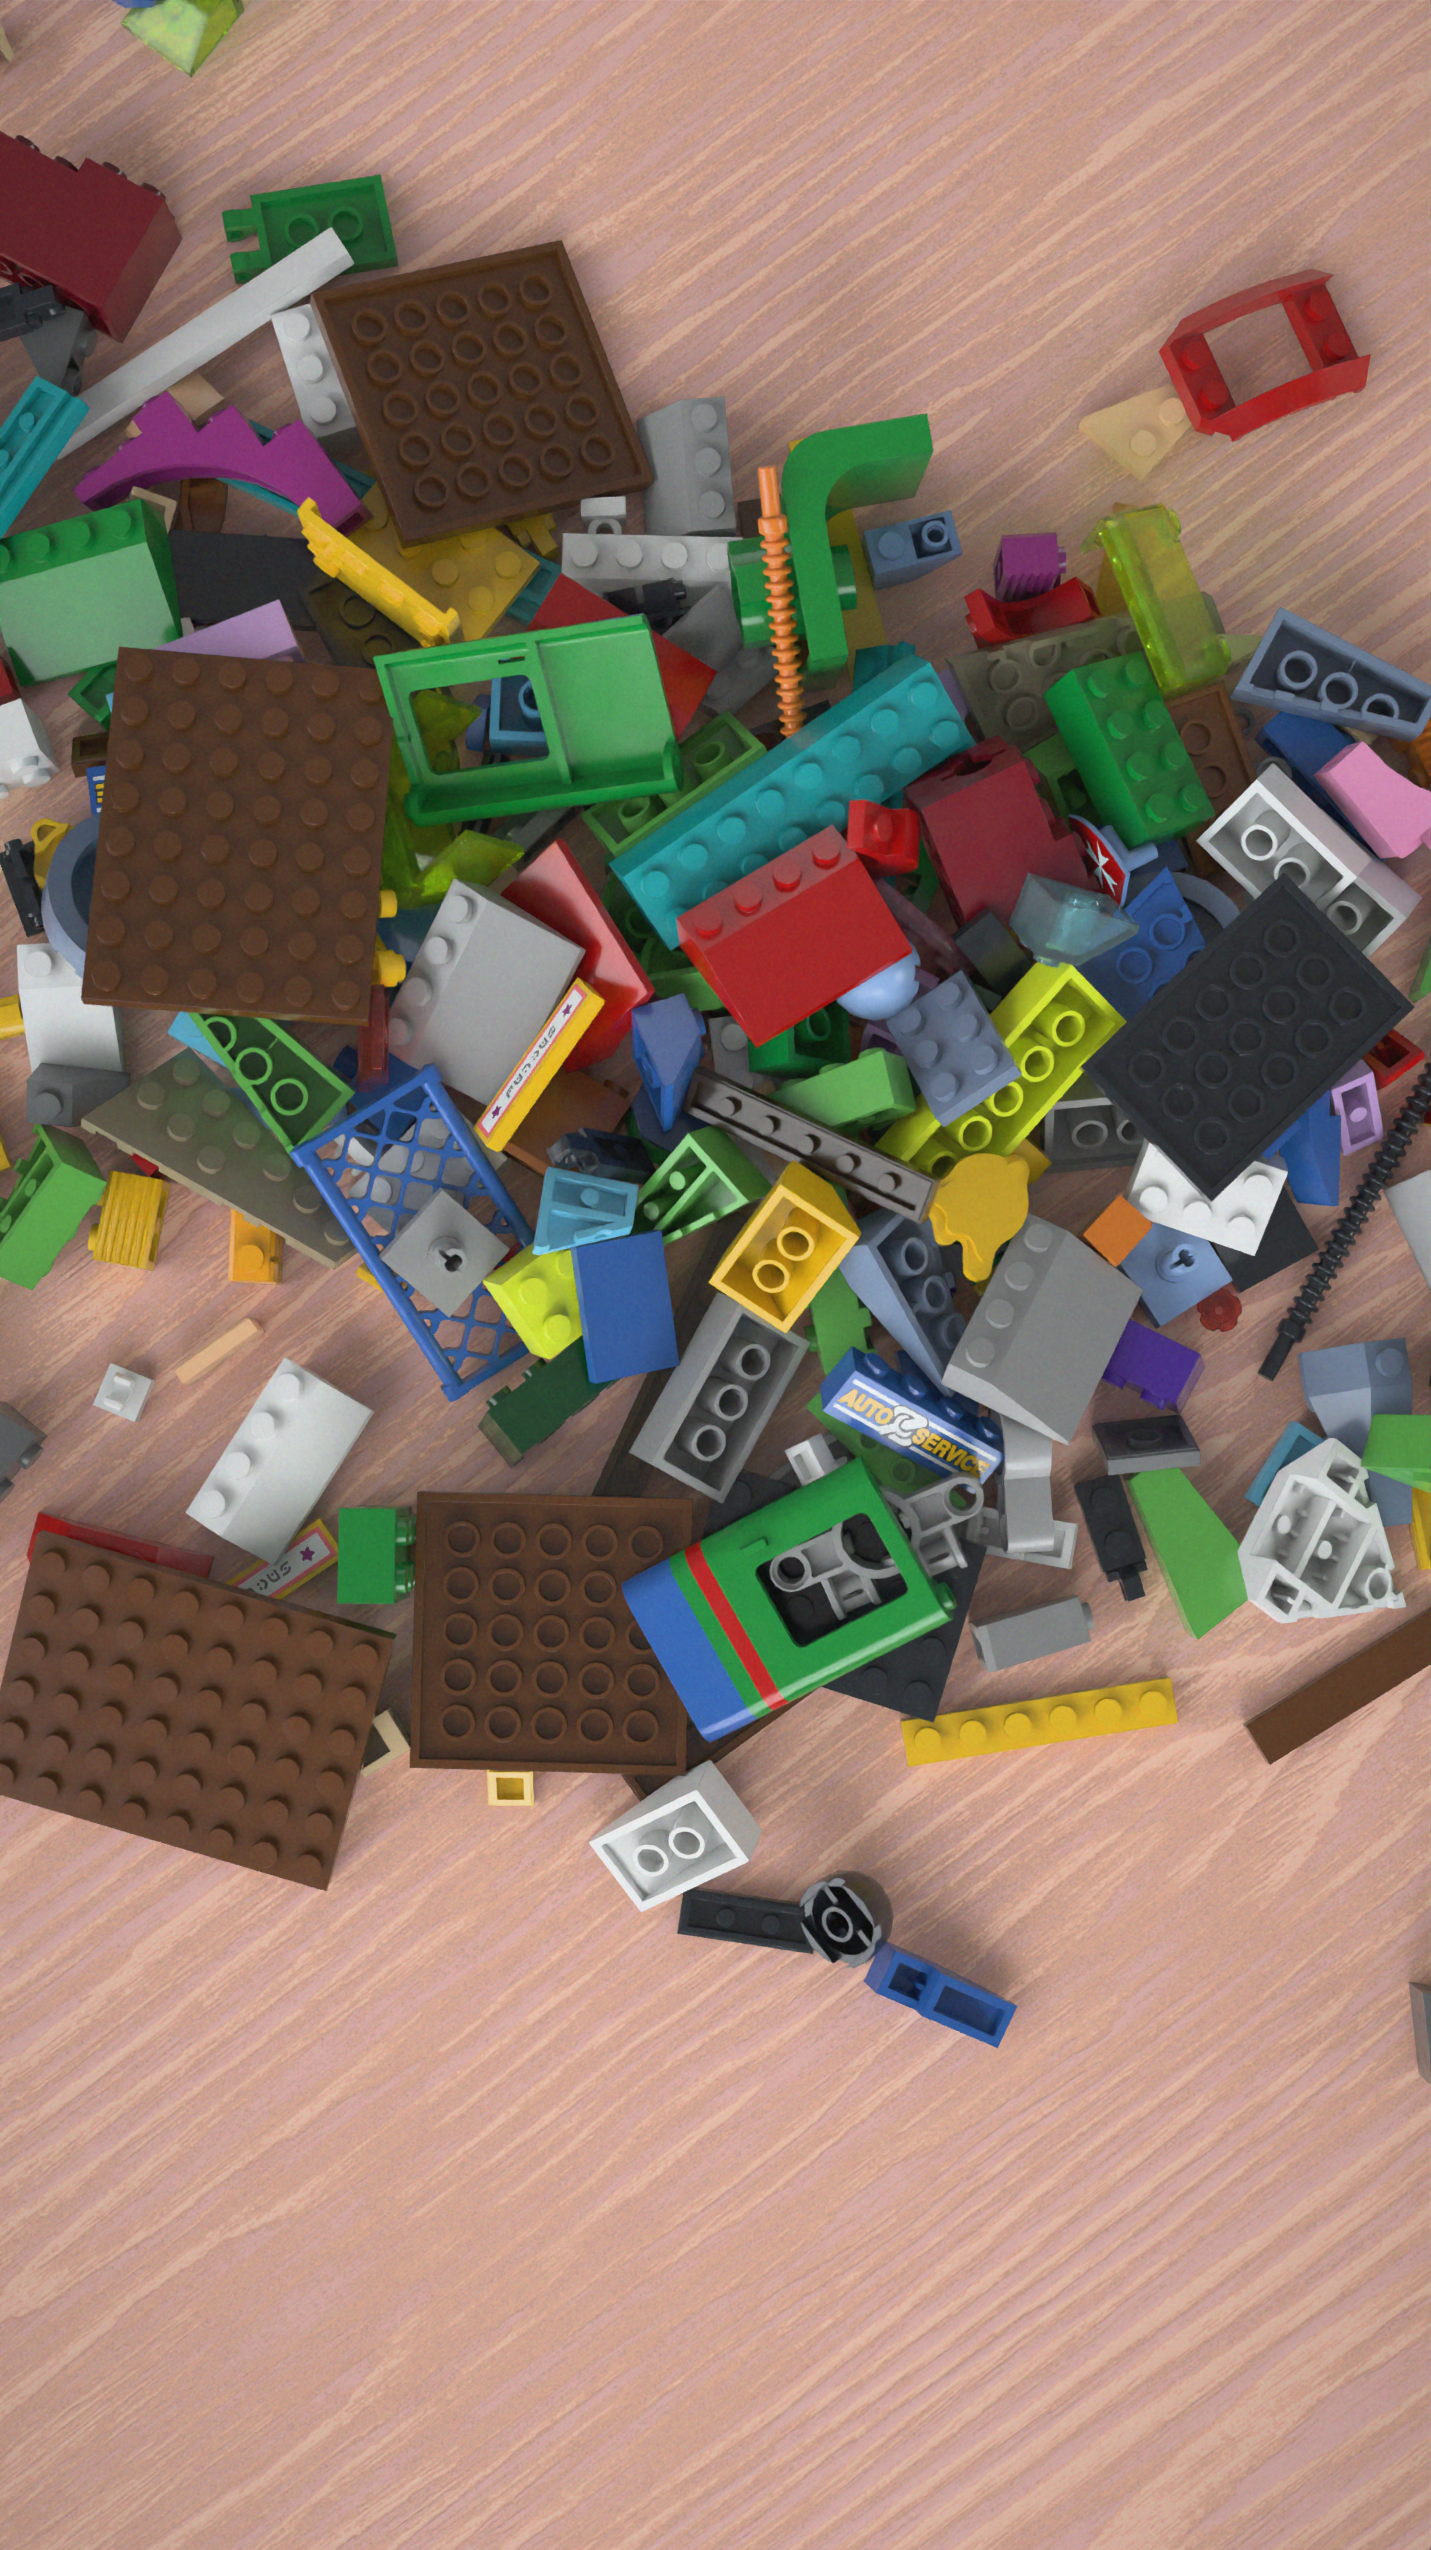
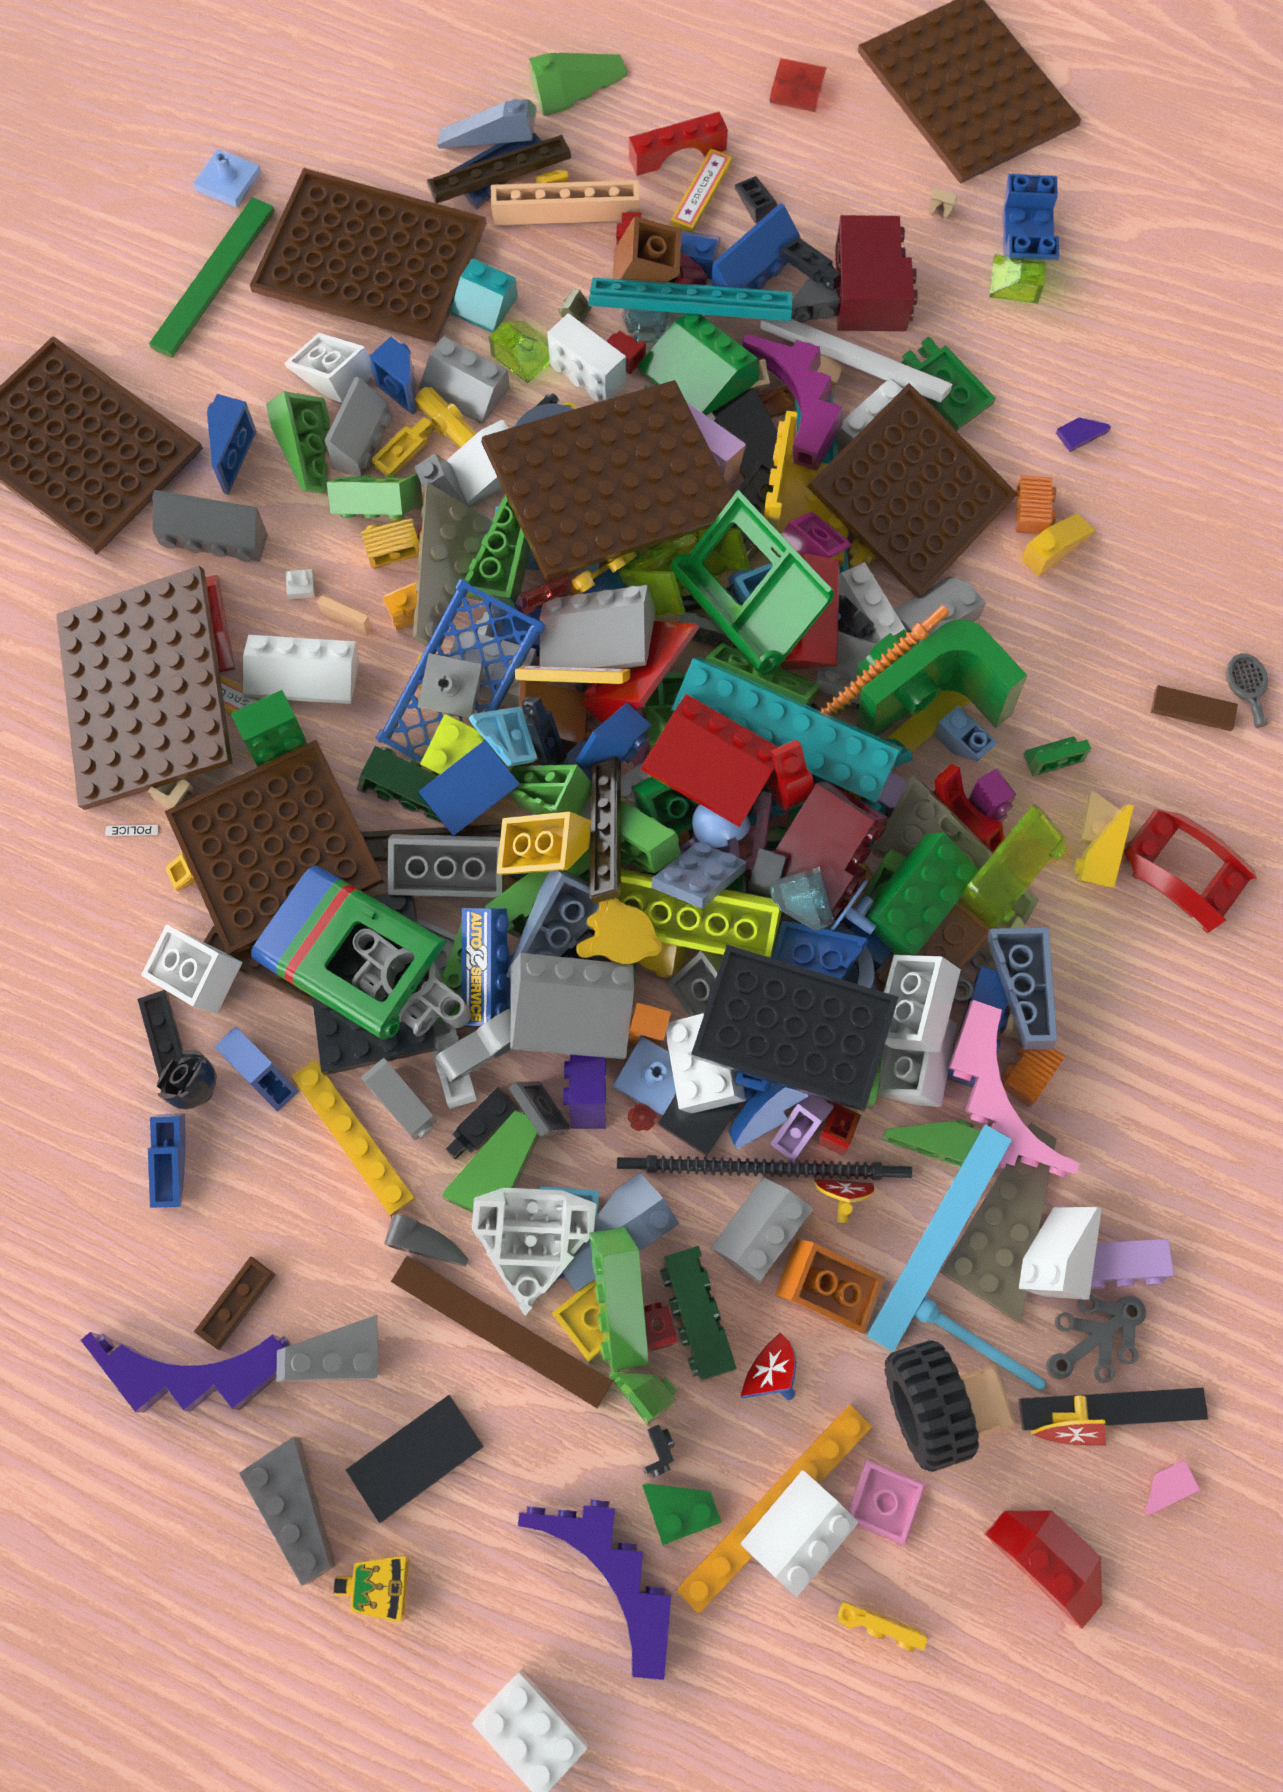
camera: 60 degrees right, 15 degrees down
(401, 1828) = (131, 830): none -> white sticker
(496, 588) = (814, 536): none -> dark pink slope
(505, 84) = (1081, 432): none -> dark purple tile
(592, 225) = (1034, 504): none -> orange brick
(604, 513) = (890, 581): white tile -> none
(672, 231) = (1056, 543): none -> yellow slope
(813, 1458) = (441, 927): white tile -> none
(874, 1812) = (256, 1068): none -> slope
(1002, 437) = (1056, 755): none -> green bracket
(1032, 198) = (1194, 708): none -> reddish brown tile
(1082, 112) = (1252, 698): none -> dark grey piece
(1186, 1988) = (234, 1303): none -> reddish brown tile
(1188, 459) = (1103, 856): none -> yellow slope
(1233, 2154) = (146, 1380): none -> dark purple arch
(1236, 1694) = (419, 1239): none -> dark grey piece
(1342, 1891) = (332, 1356): none -> light grey wedge

